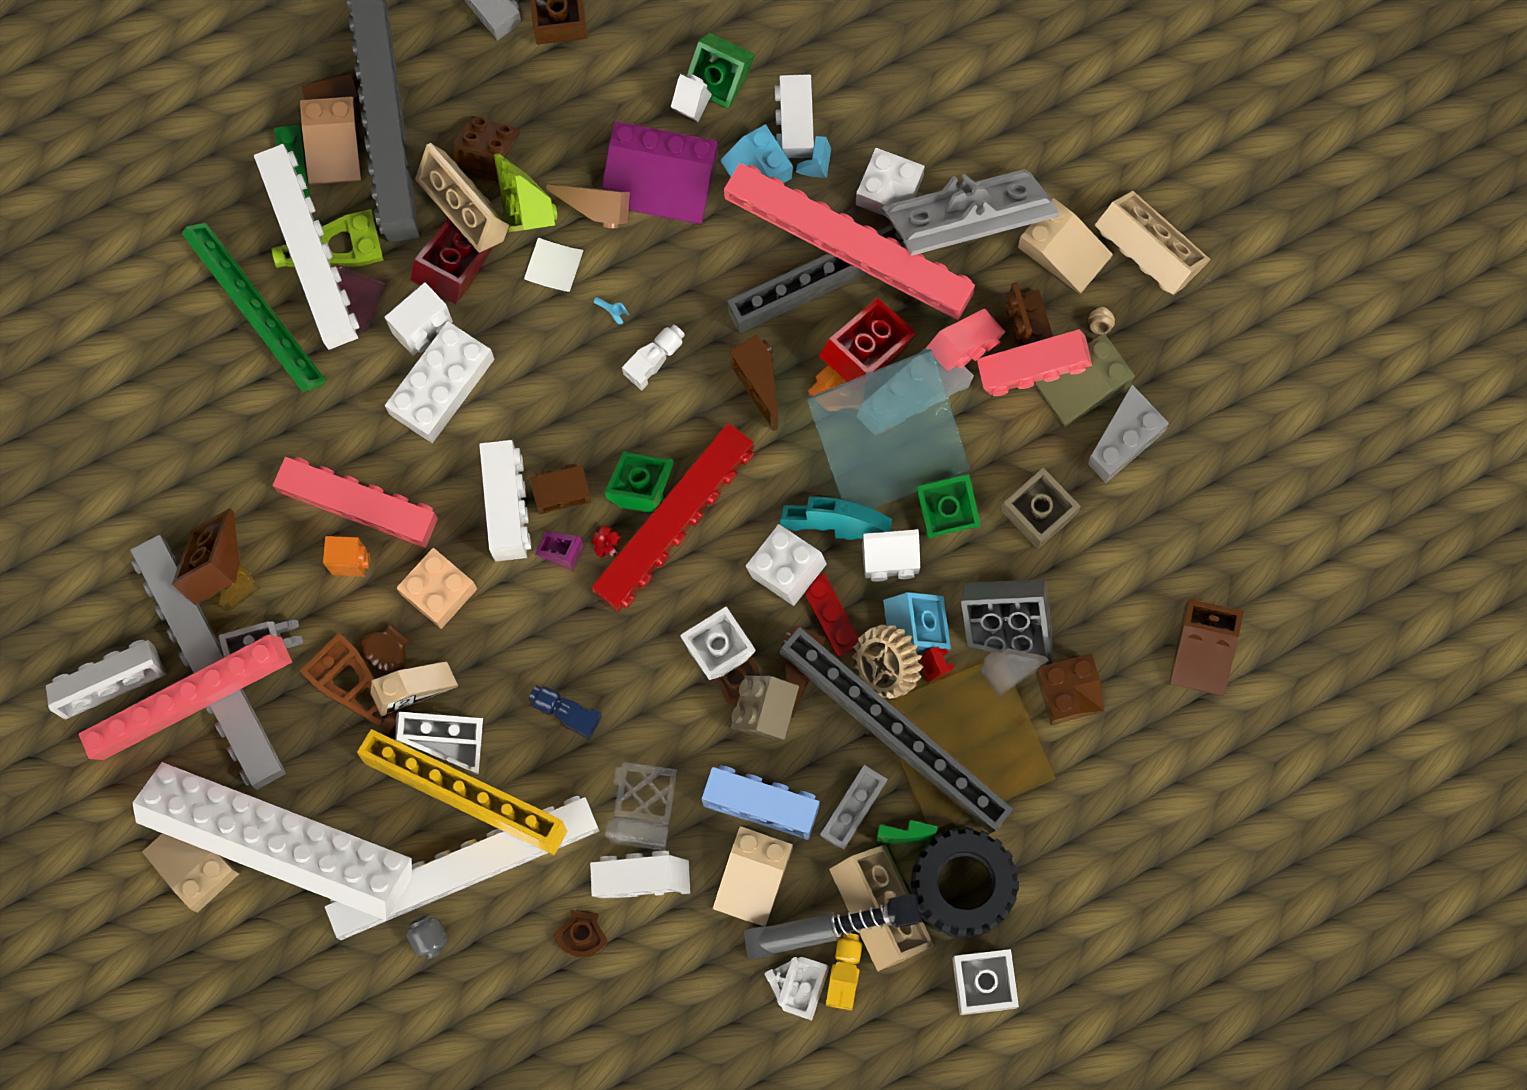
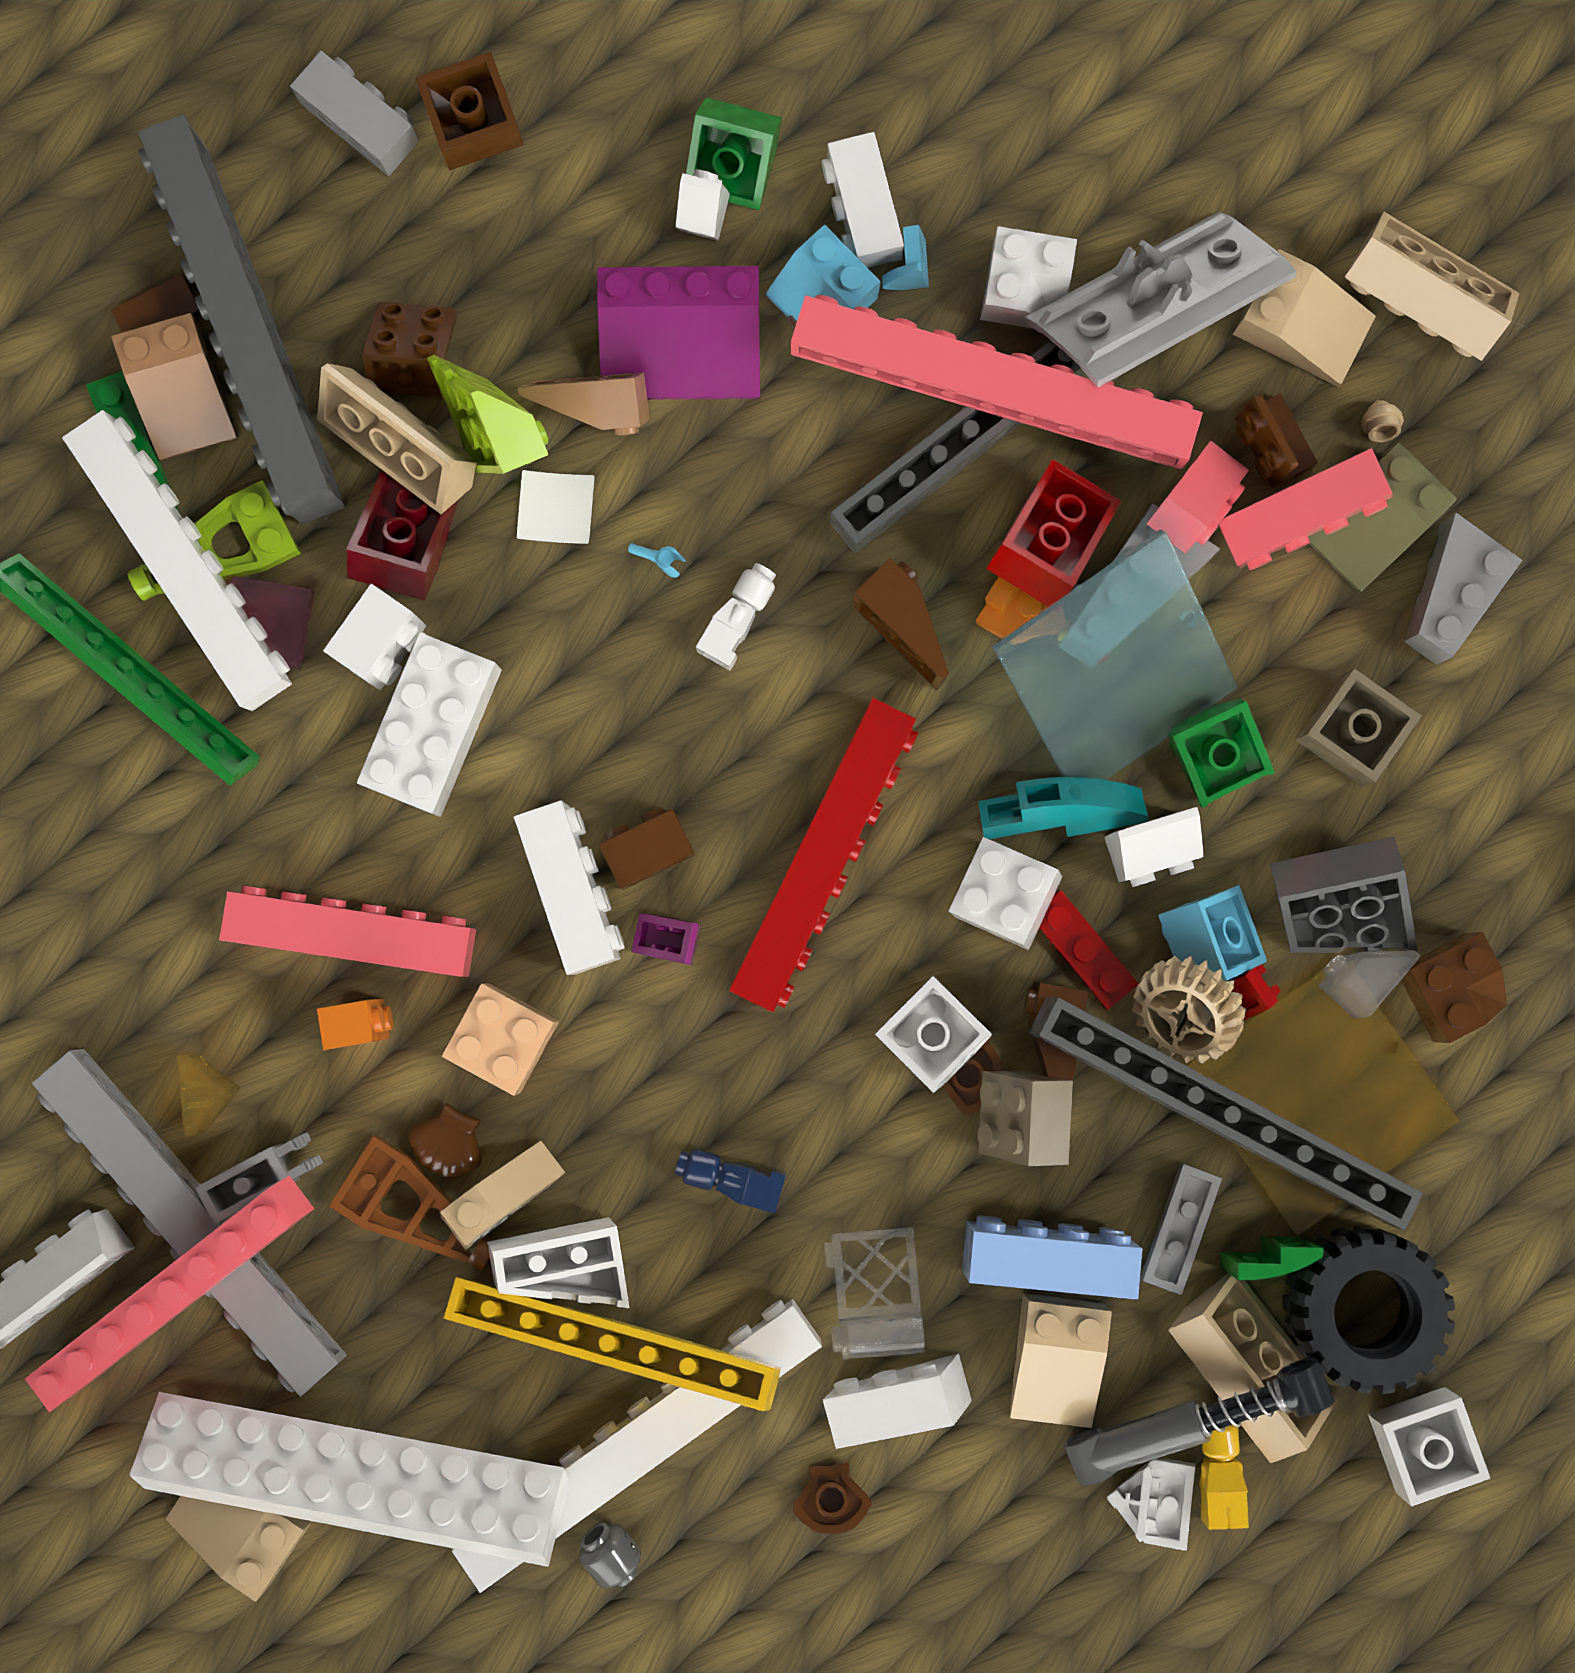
camera: 15 degrees left, 10 degrees up
(209, 559) = (151, 1074): reddish brown slope -> none
(605, 542) = (731, 912): red plant -> none
(639, 482) = (761, 814): green slope -> none

